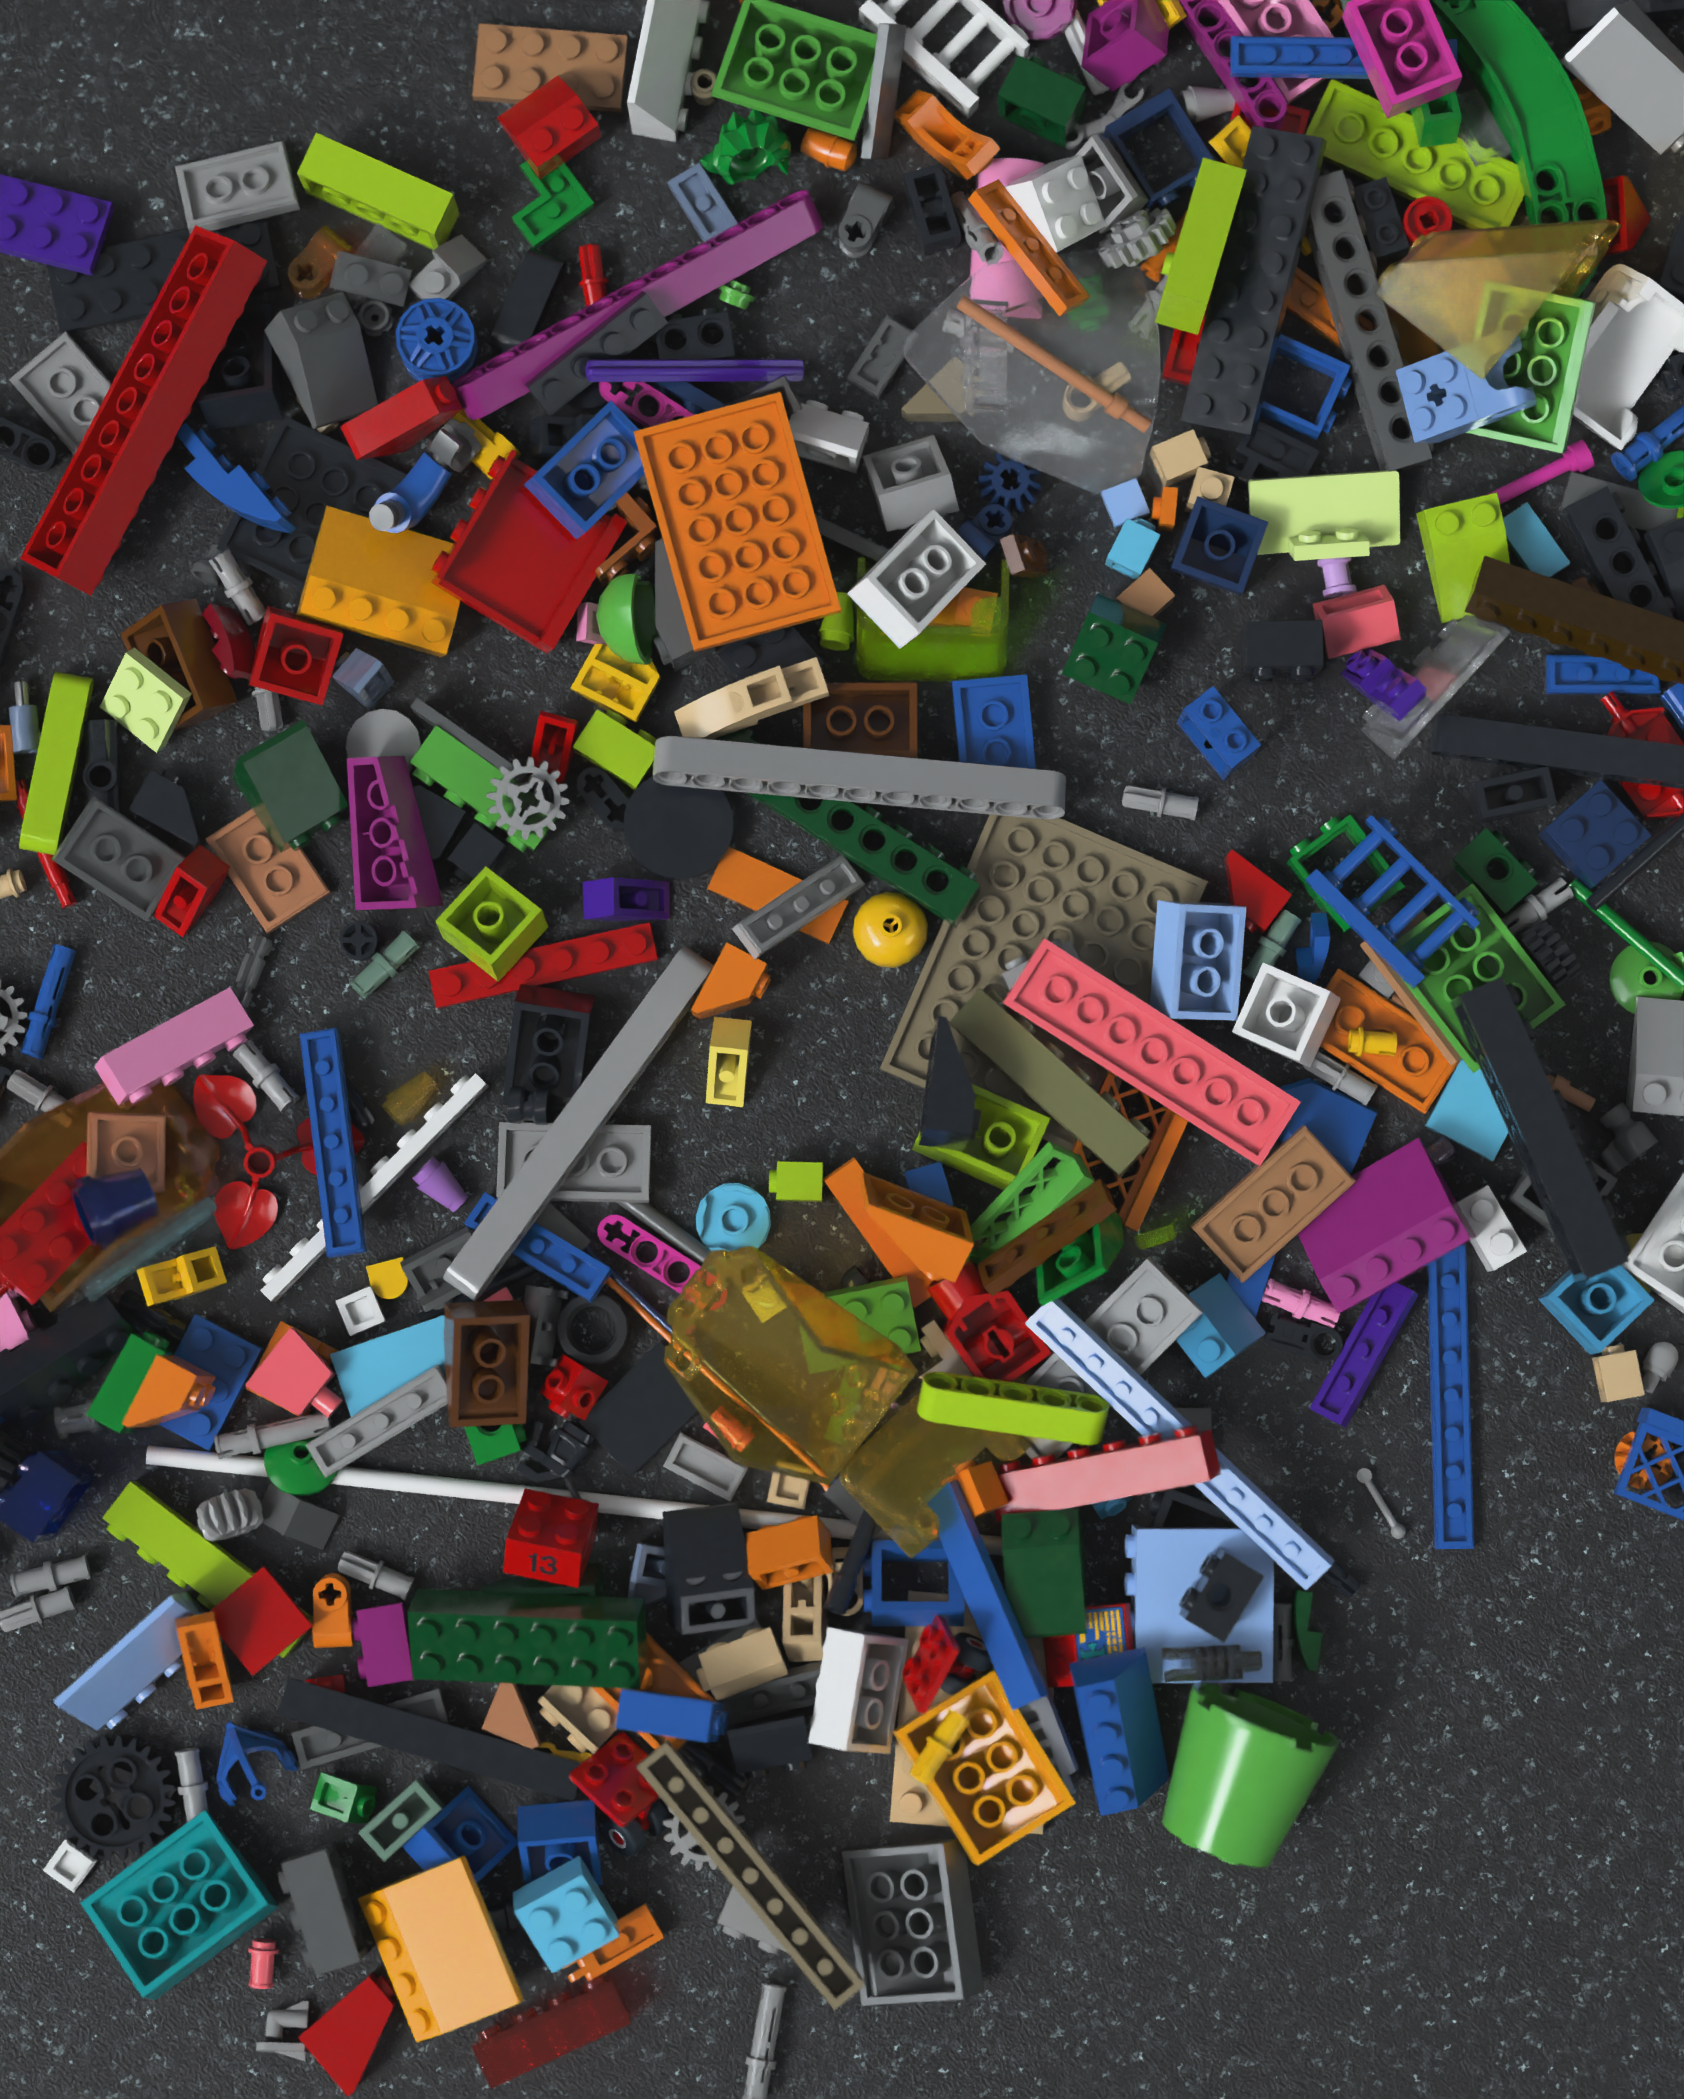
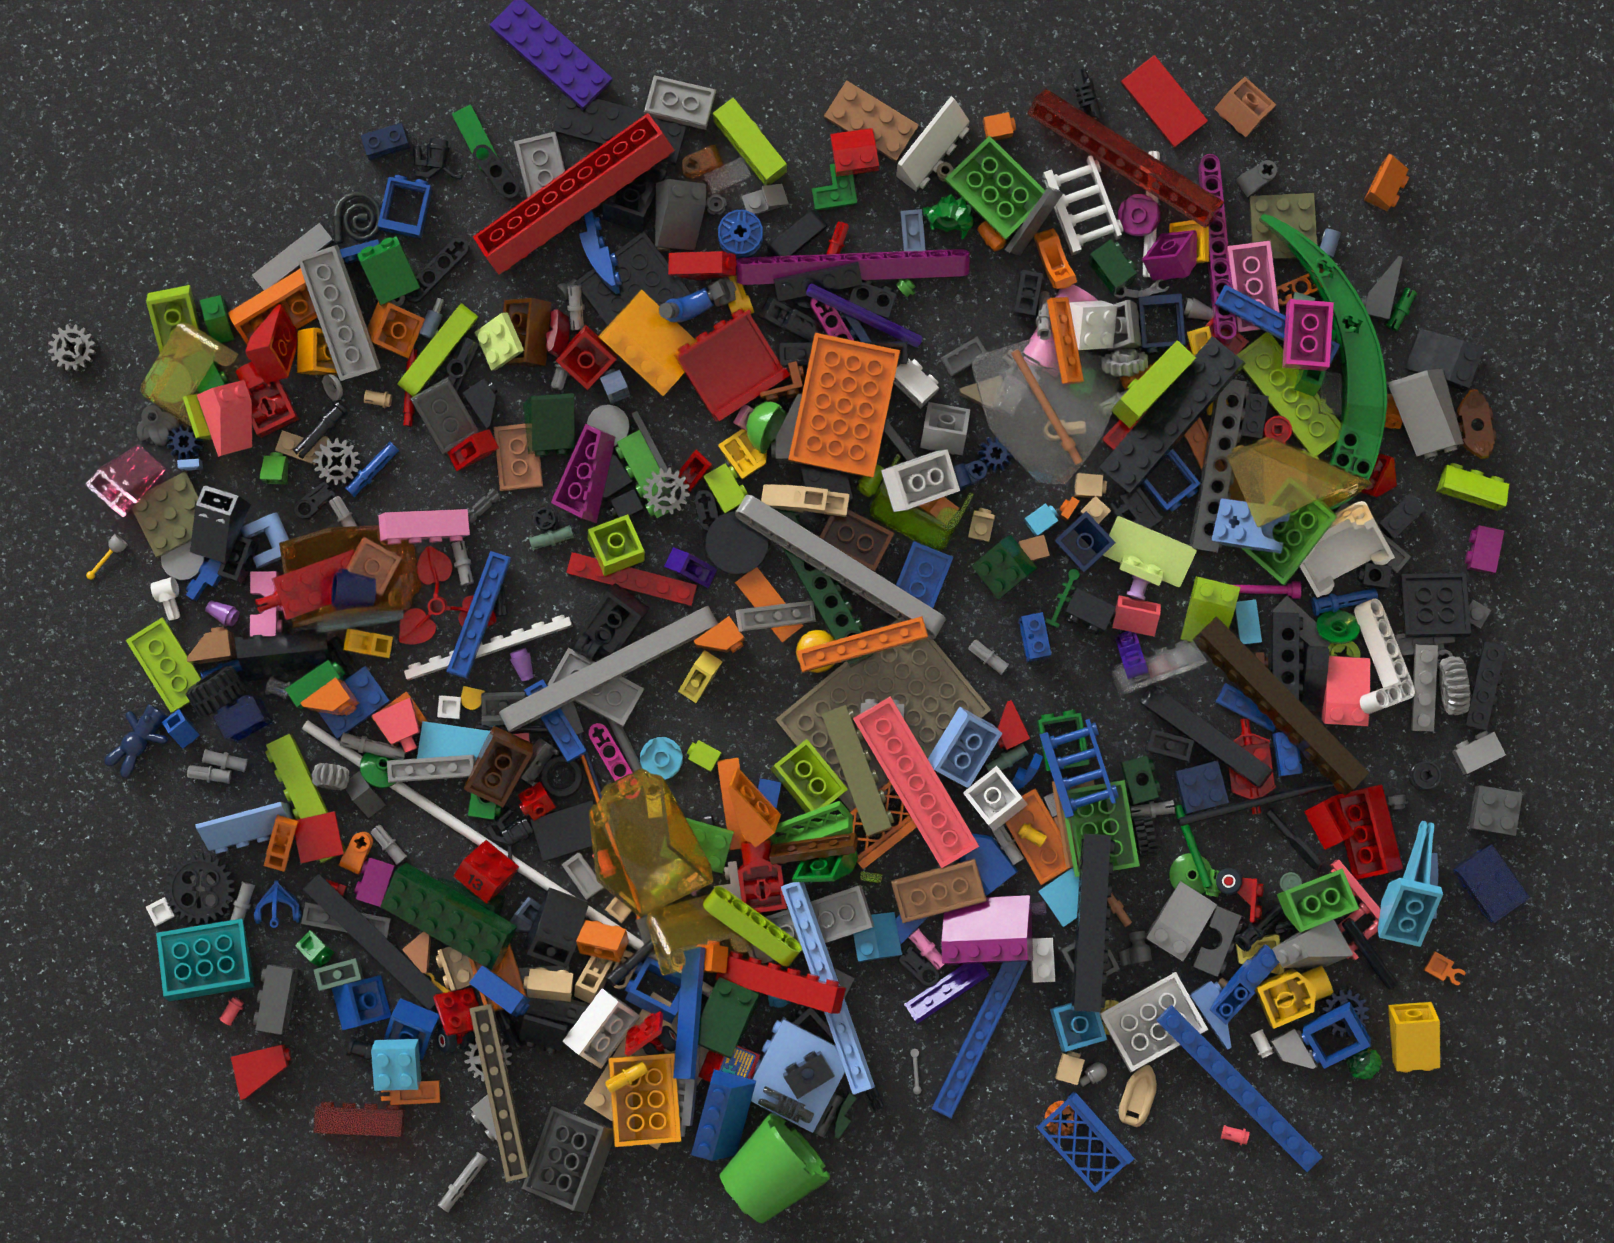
camera: 25 degrees right, 0 degrees up
(295, 2017) = (224, 1043): light grey piece -> none
(370, 278) = (723, 183): dark grey plate -> none
(409, 1099) = (528, 612): clear yellow cone -> none
(440, 1949) = (324, 1049): light orange slope -> none
(590, 471) = (783, 340): blue slope -> none
(866, 215) = (993, 278): dark grey piece -> none
(949, 1099) = (800, 753): black slope -> none
(957, 880) = (862, 644): none -> orange tile
(1025, 556) = (983, 496): reddish brown plate -> none
(1044, 603) = (981, 525): none -> tan bracket
(1125, 502) = (1050, 494): light blue tile -> none
(1226, 608) = (1073, 575): none -> green piece

